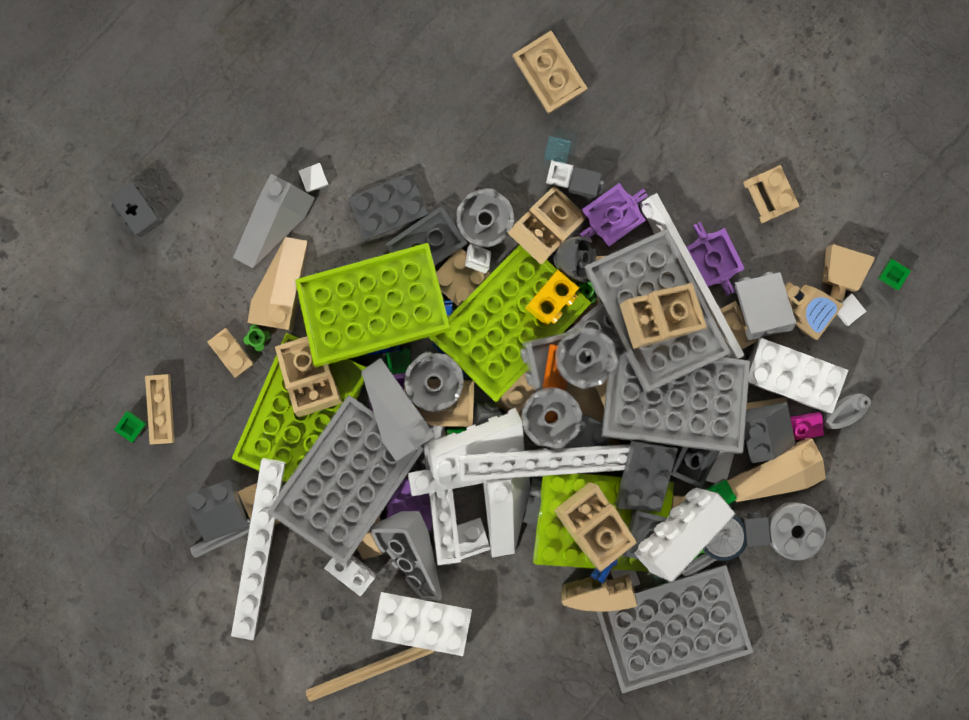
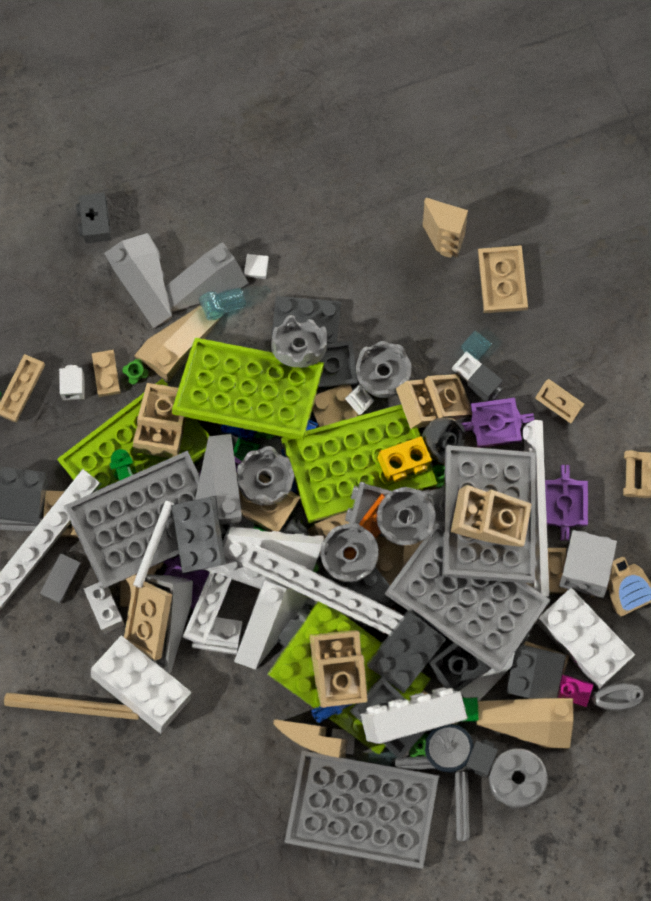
camera: 35 degrees right, 15 degrees down
(204, 379) = (72, 383): none -> white brick
(208, 241) = (140, 271): none -> light grey wedge
(296, 563) = (60, 578): none -> light grey tile
(297, 236) = (216, 304): none -> clear light blue piece
(299, 439) = (122, 464): none -> green hips
(366, 500) = (153, 544): none -> white bar
(395, 223) = (294, 333): none -> light grey plate
(397, 566) = (148, 619): none -> tan plate
(403, 470) = (198, 534): none -> dark grey plate
(472, 50) = (444, 226): none -> tan slope
(661, 164) = (559, 401): none -> tan plate
(759, 579) = (462, 806): none -> light grey axle

